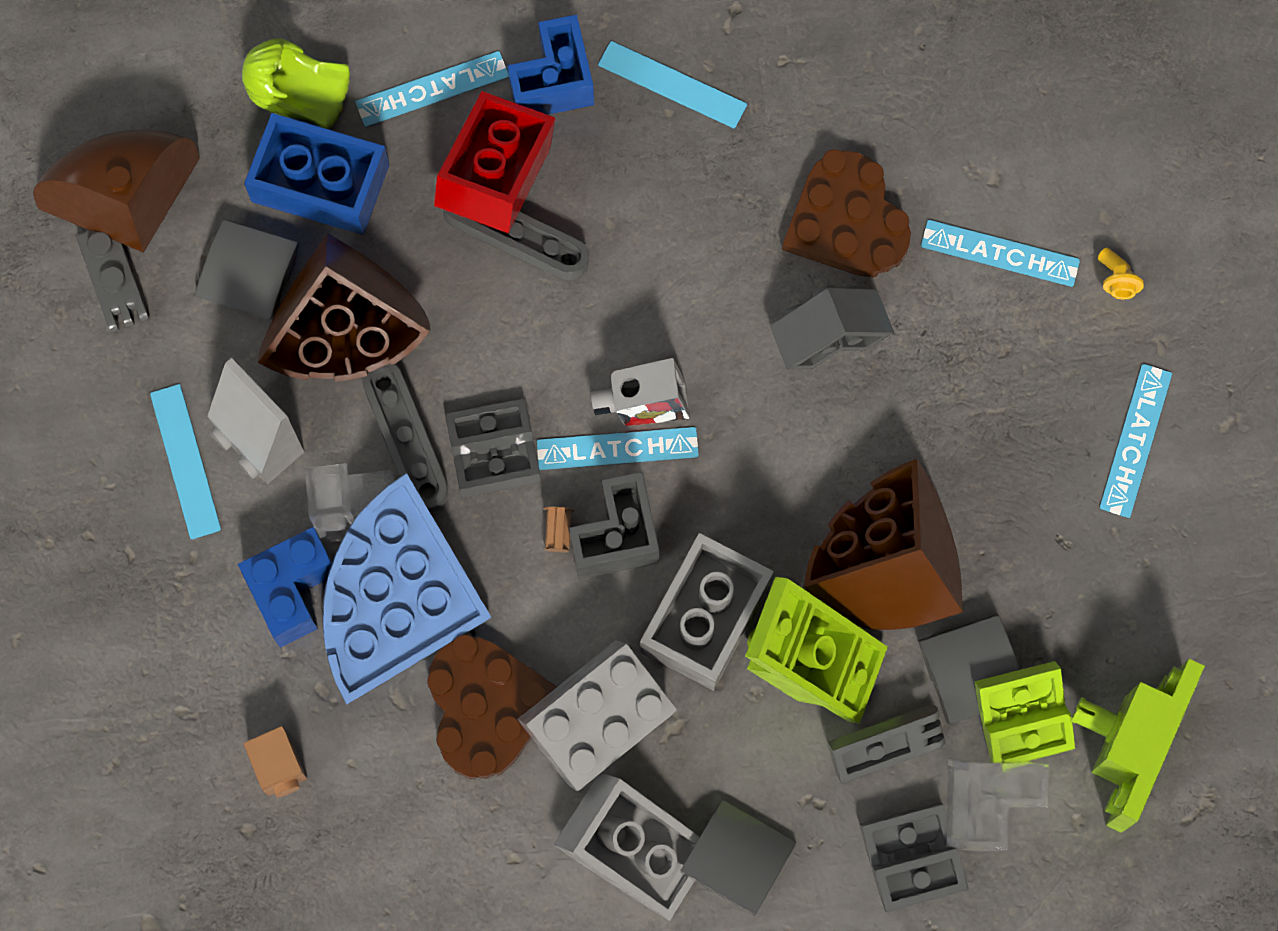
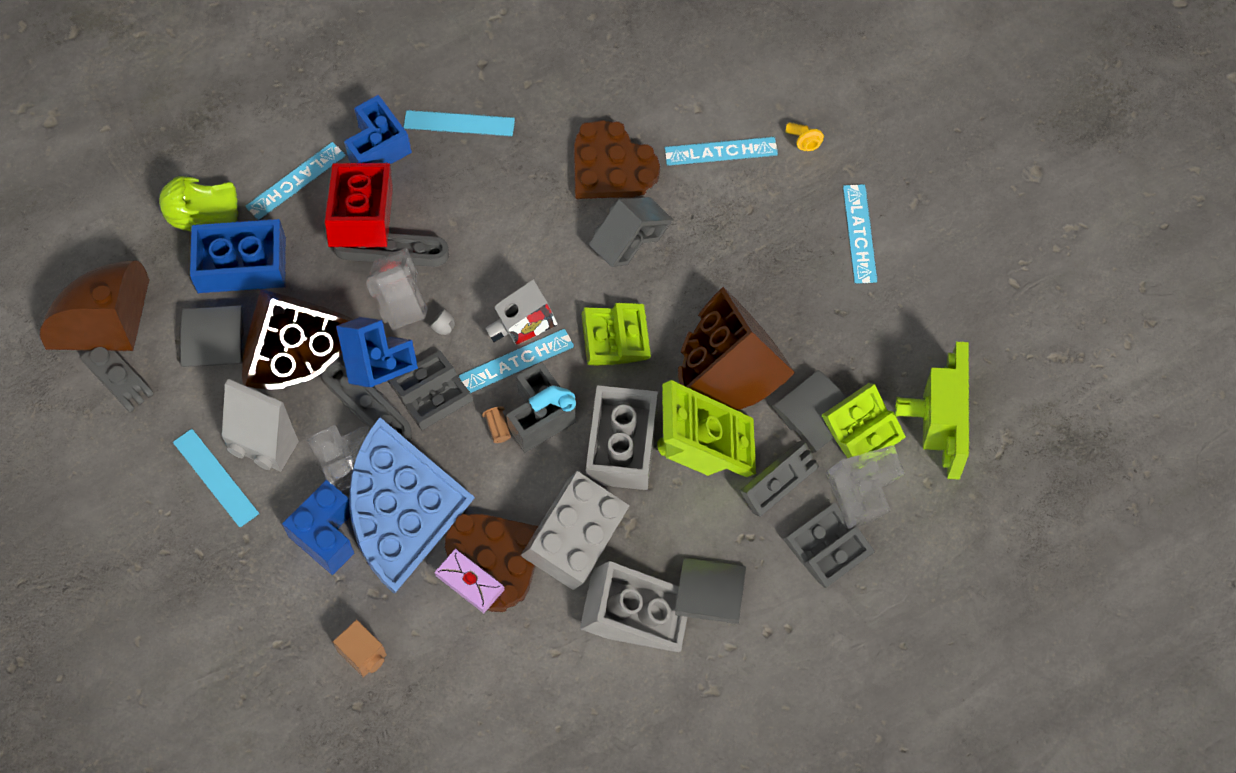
camera: 20 degrees left, 10 degrees down
(431, 383) = (370, 355): none -> blue brick
(440, 729) = (469, 581): none -> lavender tile
(496, 297) = (395, 286): none -> clear brick
(542, 361) = (443, 323): none -> light grey hinge
(638, 529) = (553, 395): none -> medium azure arm
(757, 462) = (615, 334): none -> lime slope

